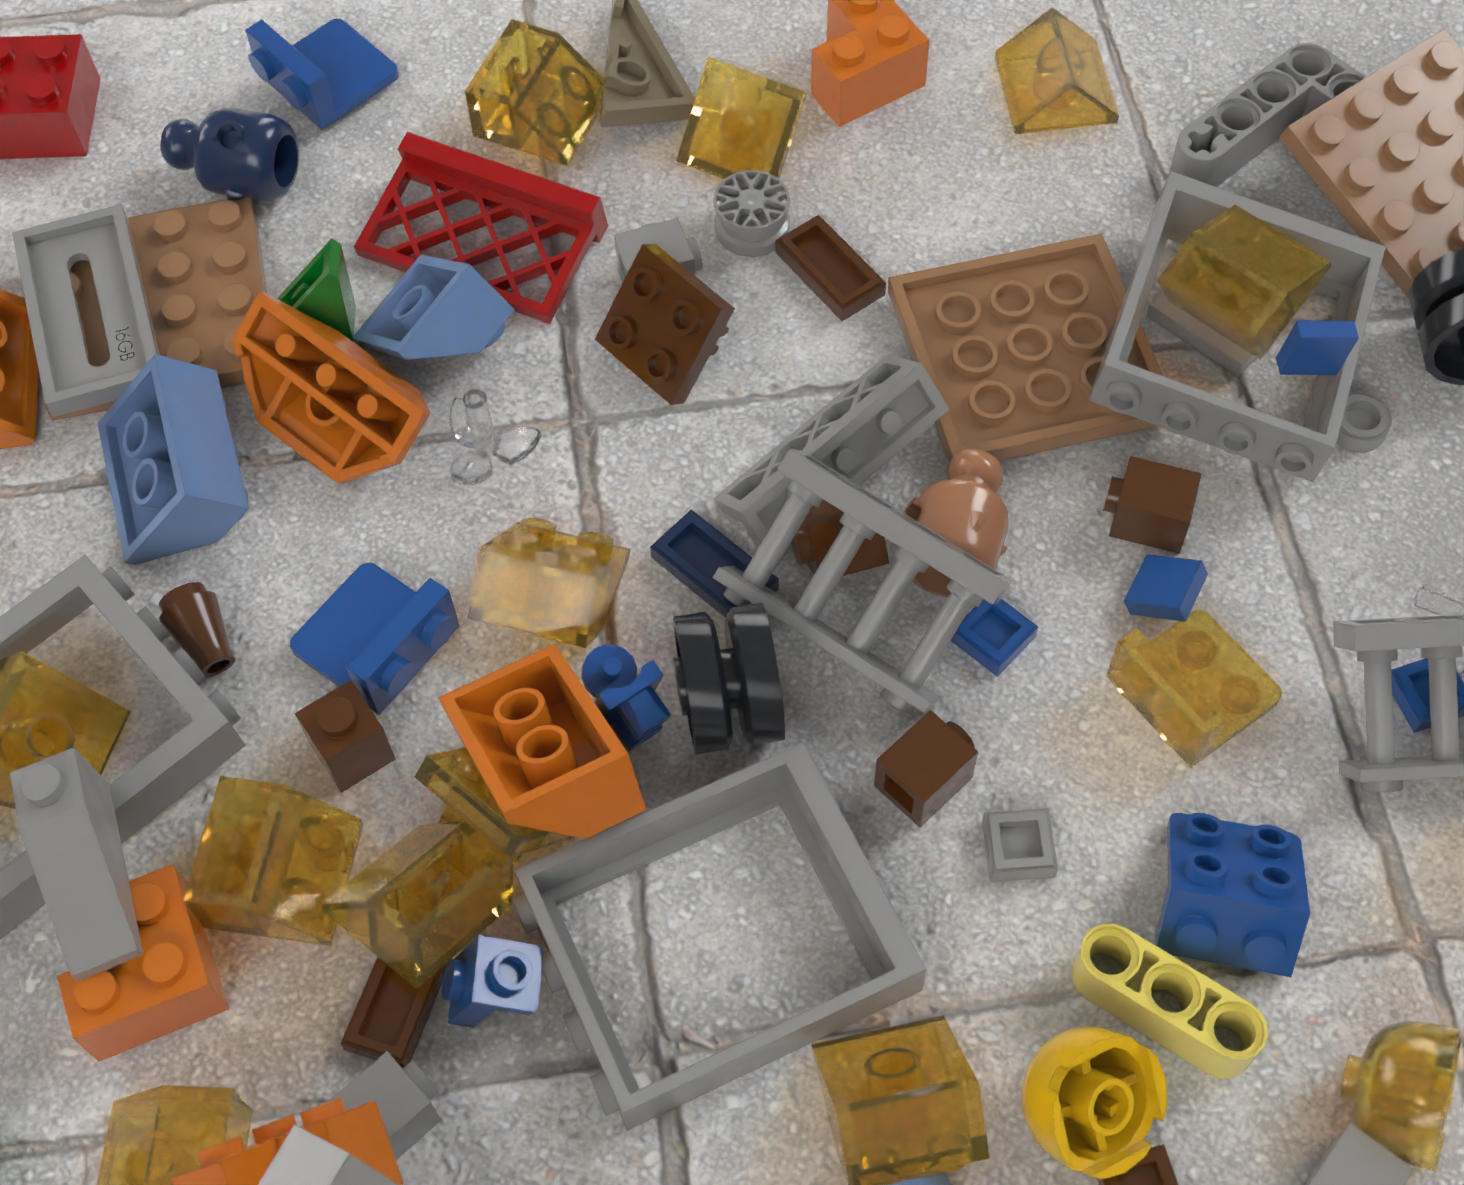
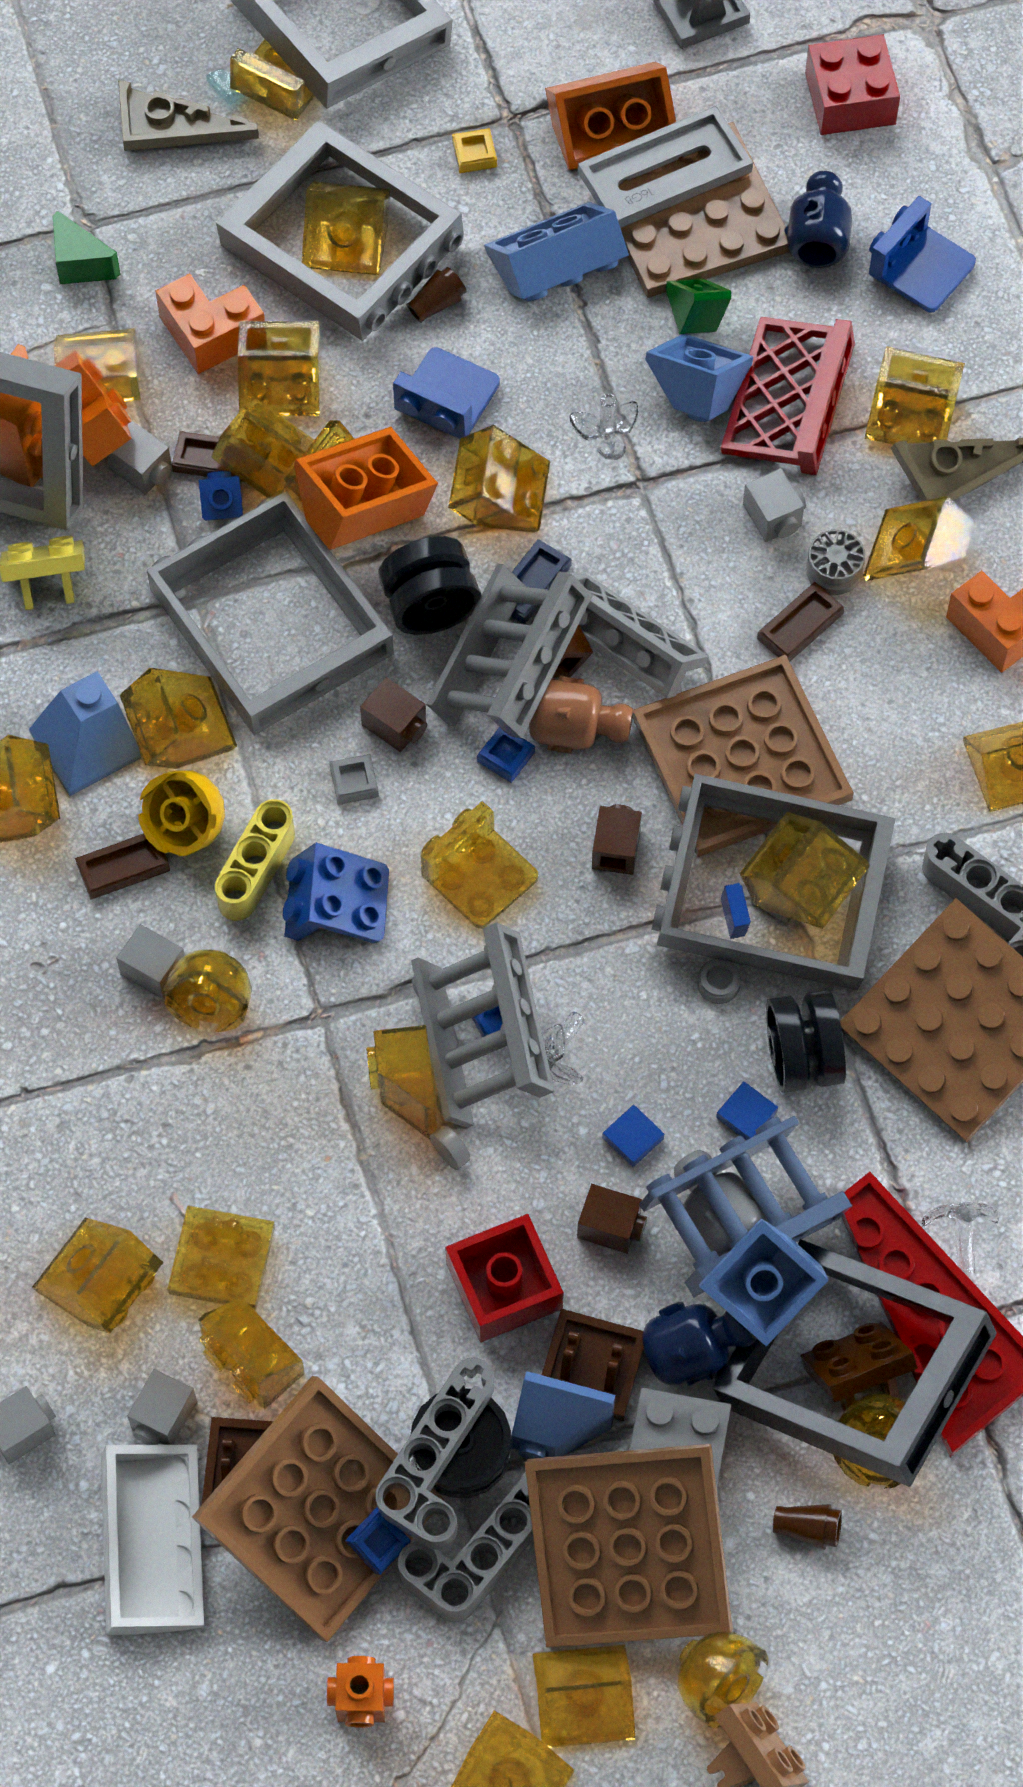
camera: 80 degrees right, 5 degrees up
(78, 861) = (253, 259): light grey slope -> none
(325, 392) = (626, 322): orange wedge -> none
(345, 736) = (368, 389): reddish brown brick -> none
(622, 696) = (422, 522): blue hips -> none
(664, 324) = (709, 513): reddish brown plate -> none
(1166, 587) = (552, 851): blue tile -> none

